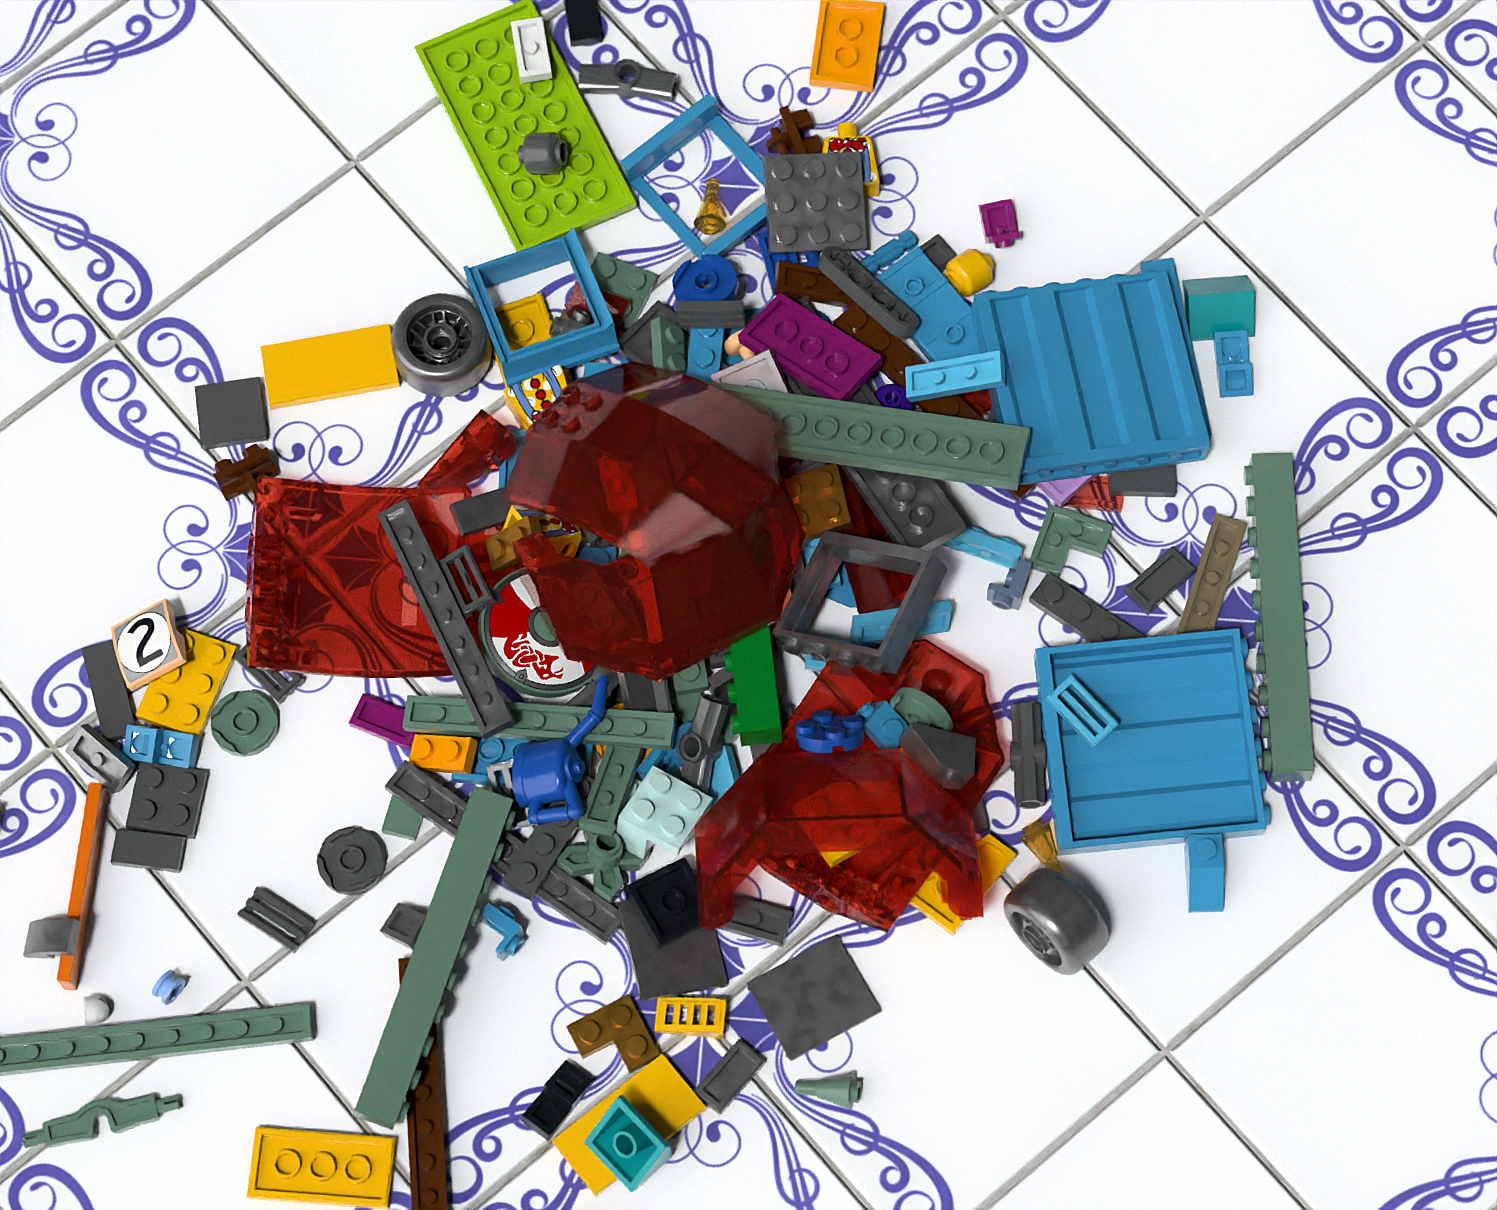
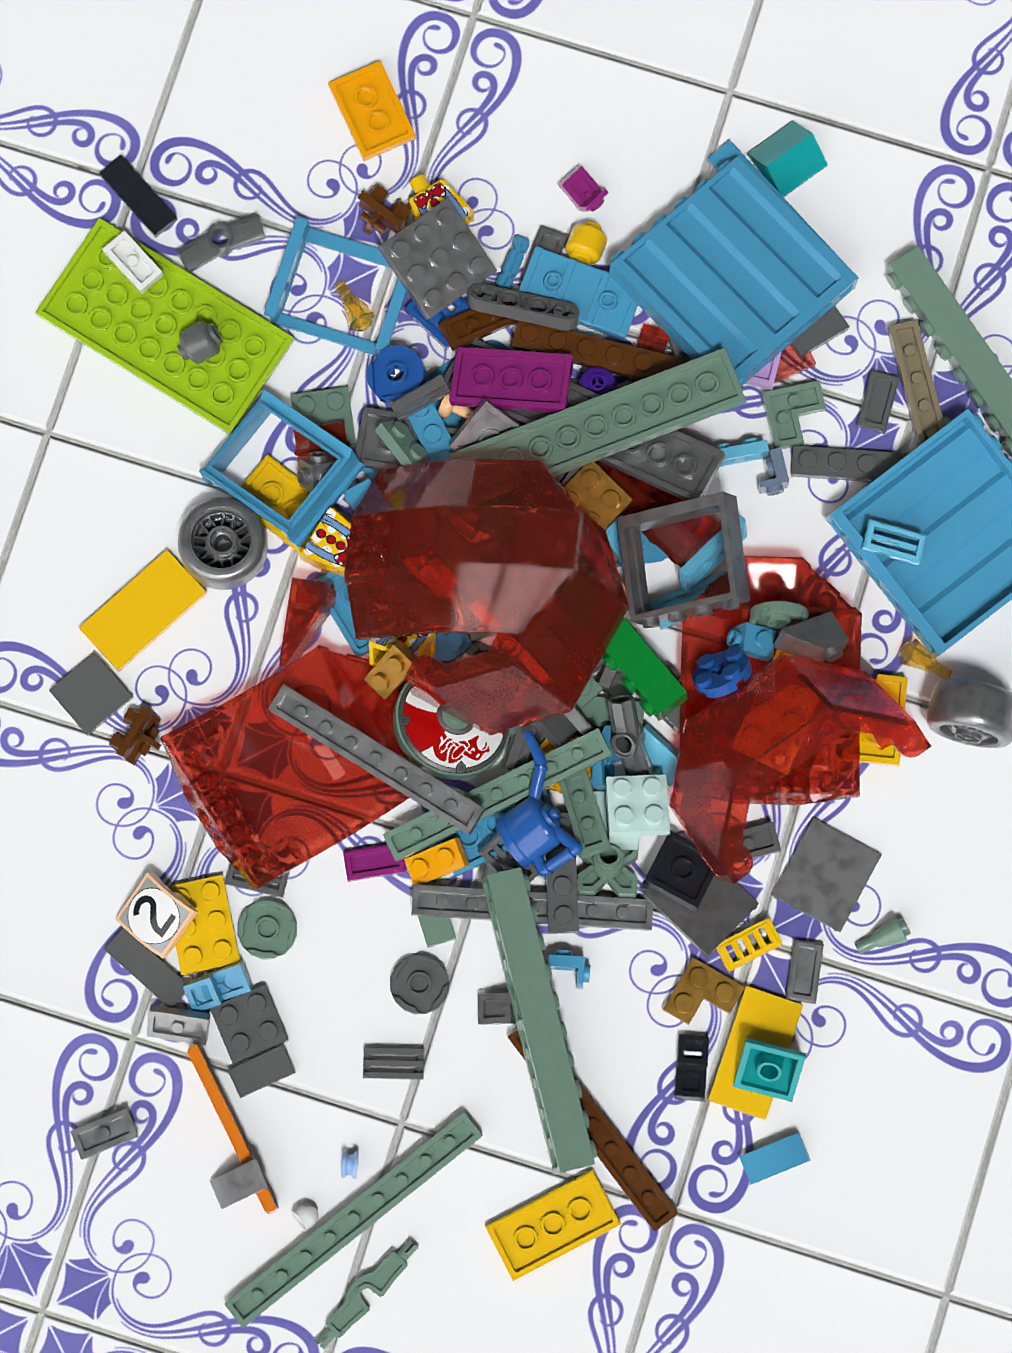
camera: 35 degrees left, 10 degrees up
(478, 602) = (394, 733): dark grey tile -> none
(480, 512) = (346, 659): flat silver tile -> none
(955, 376) = (638, 337): medium azure plate -> none
(1027, 755) = (868, 596): dark grey piece -> none
(1233, 363) = (826, 198): dark azure slope -> none

